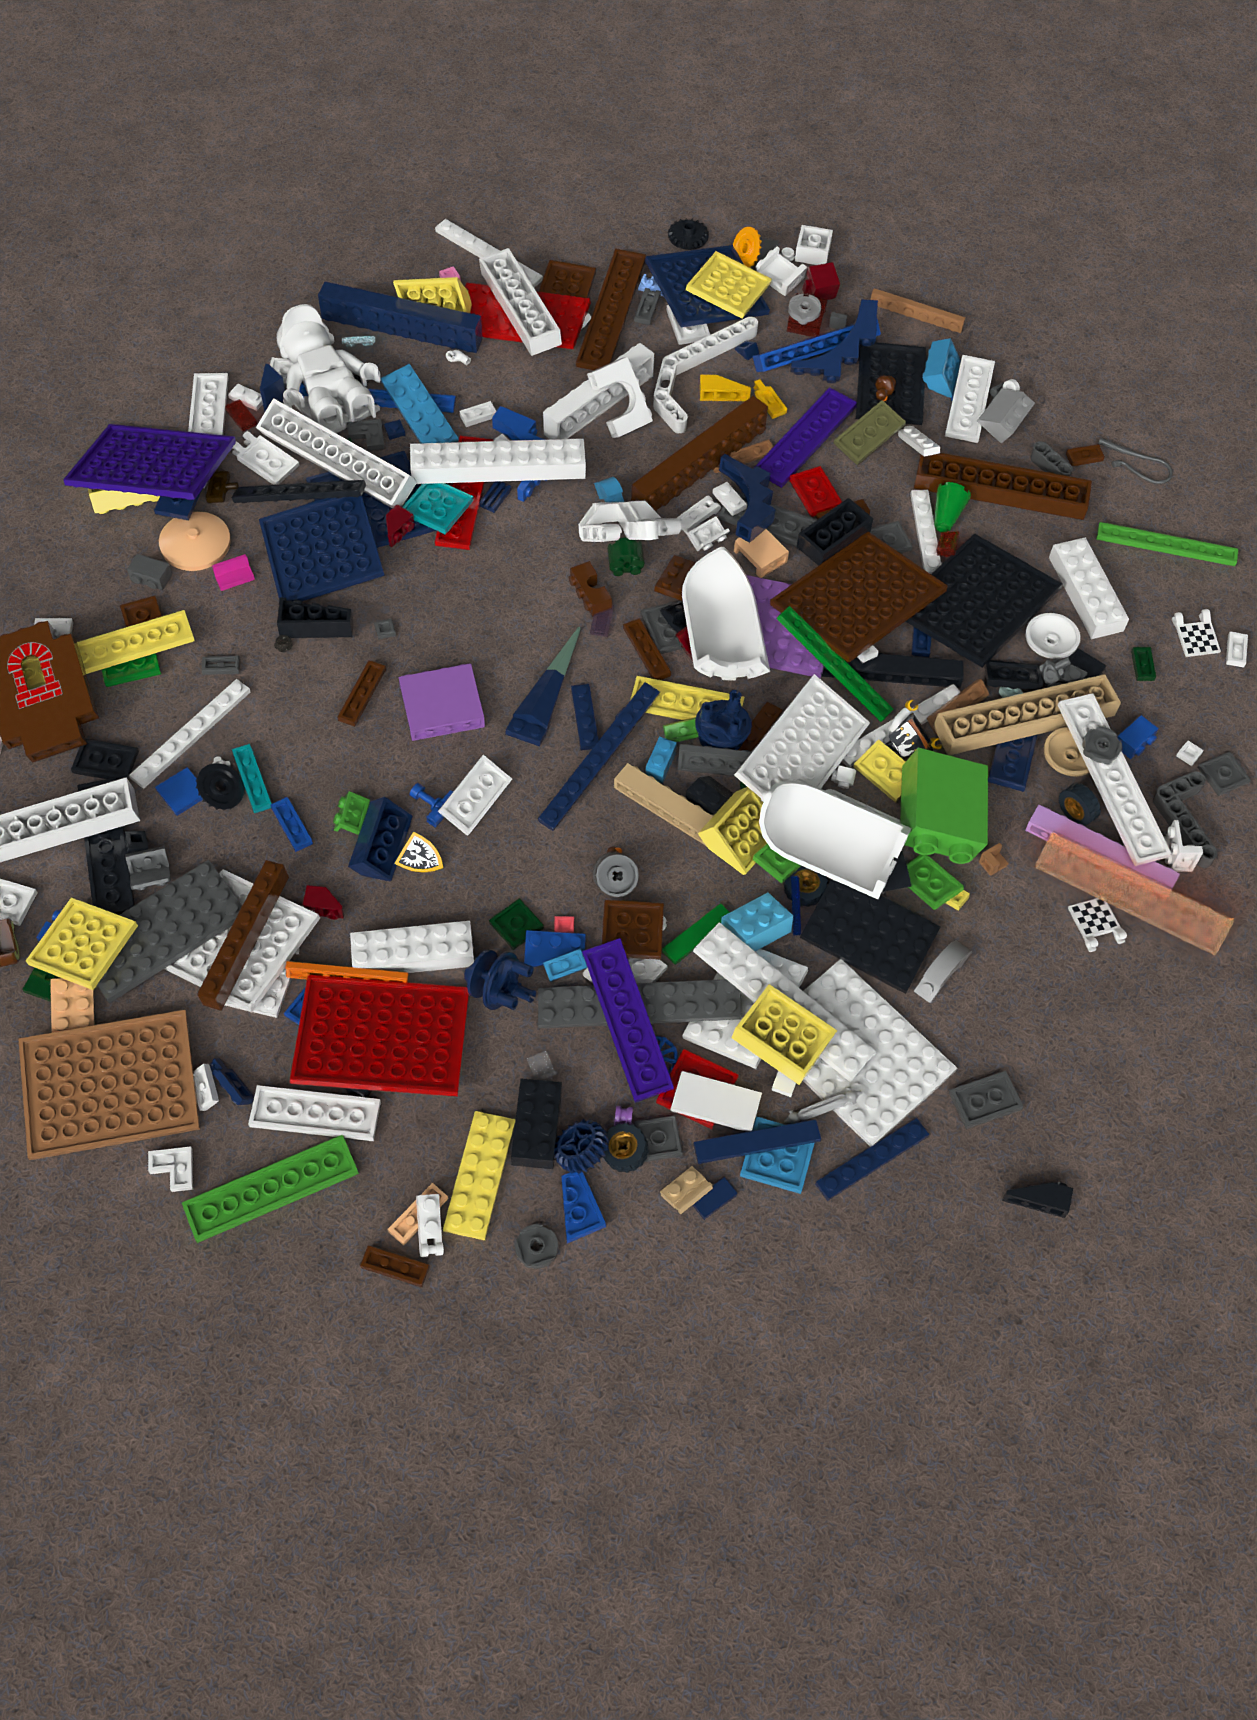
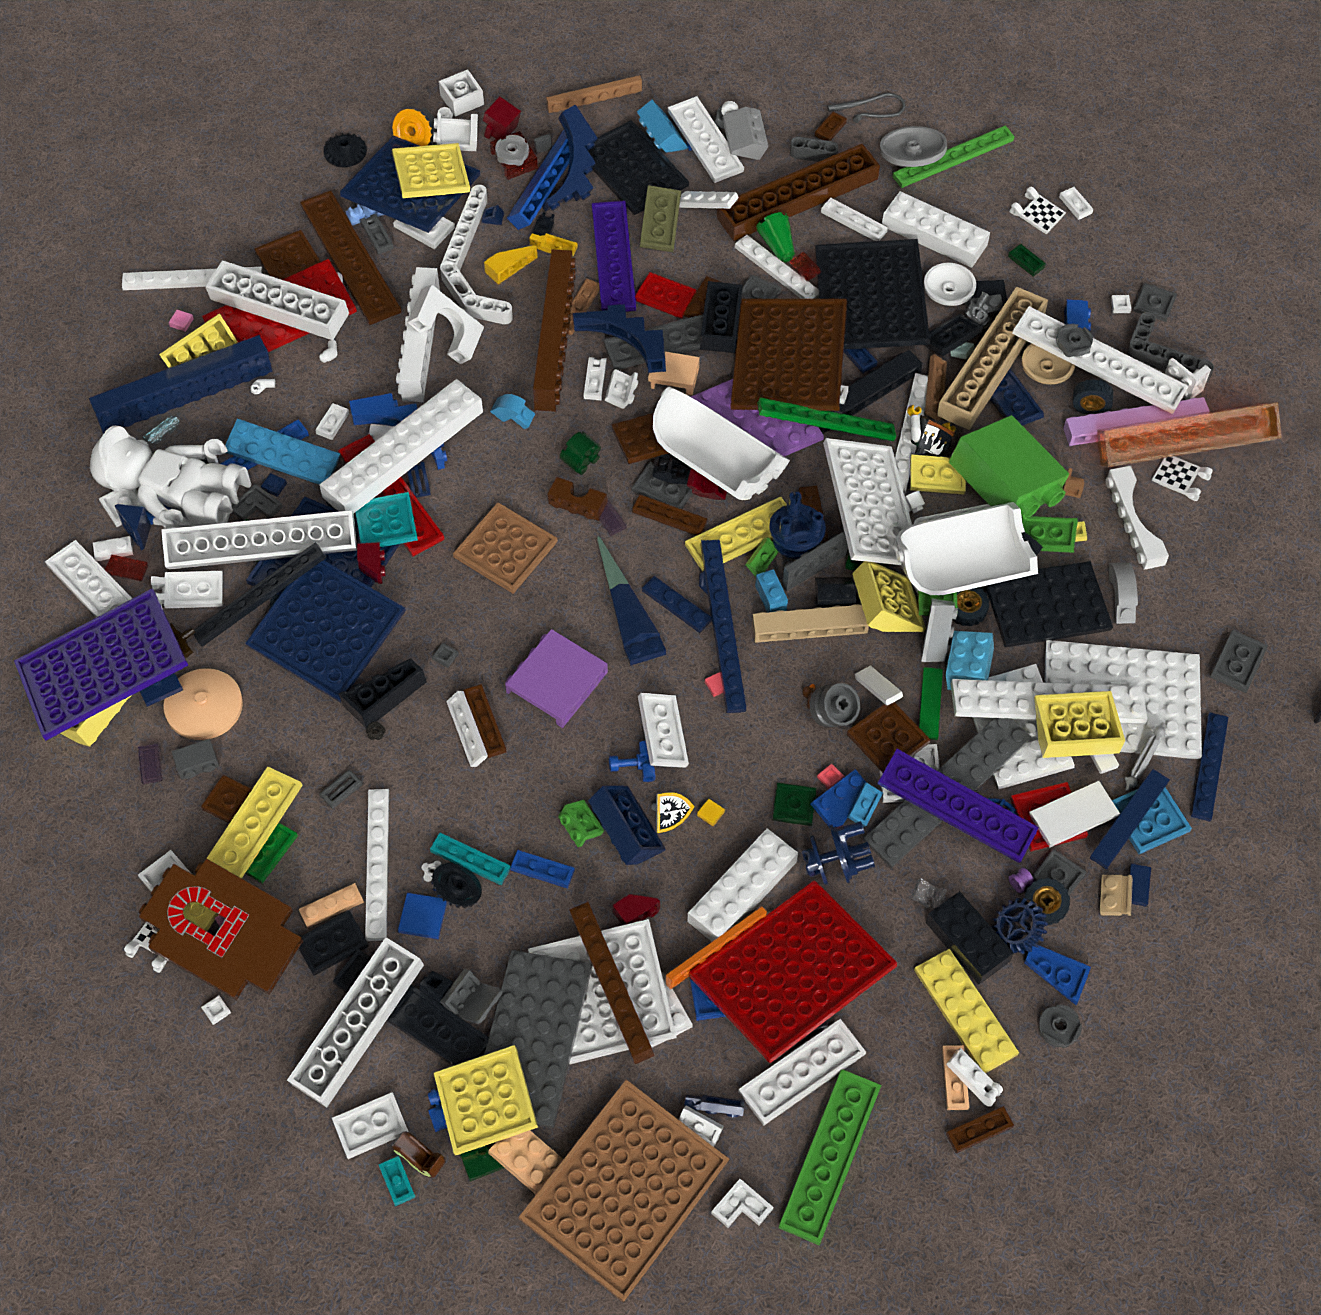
camera: 40 degrees left, 0 degrees up
(121, 554) = (150, 763): none -> clear purple tile
(132, 736) = (331, 905): none -> light nougat plate
(233, 572) = (269, 706): dark pink panel -> none
(341, 692) = (467, 729): none -> white plate
(449, 880) = (710, 812): none -> yellow tile
(504, 586) = (505, 547): none -> medium nougat plate
(527, 367) = (330, 353): none -> white arm
(549, 793) = (714, 684): none -> coral tile
(635, 517) = (564, 413): white piece -> none
(667, 887) = (878, 685): none -> white tile
(729, 498) = (610, 347): white plate -> none
(750, 879) = (938, 631): none -> light grey slope
(777, 381) = (544, 225): none -> black plate
(795, 893) = (982, 623): clear blue tile -> none
(885, 387) = (637, 172): reddish brown animal -> none
(1005, 955) = (1149, 548): none -> white arch
(1028, 536) = (854, 219): none -> white plate
(1137, 512) = (913, 146): none -> light grey dish

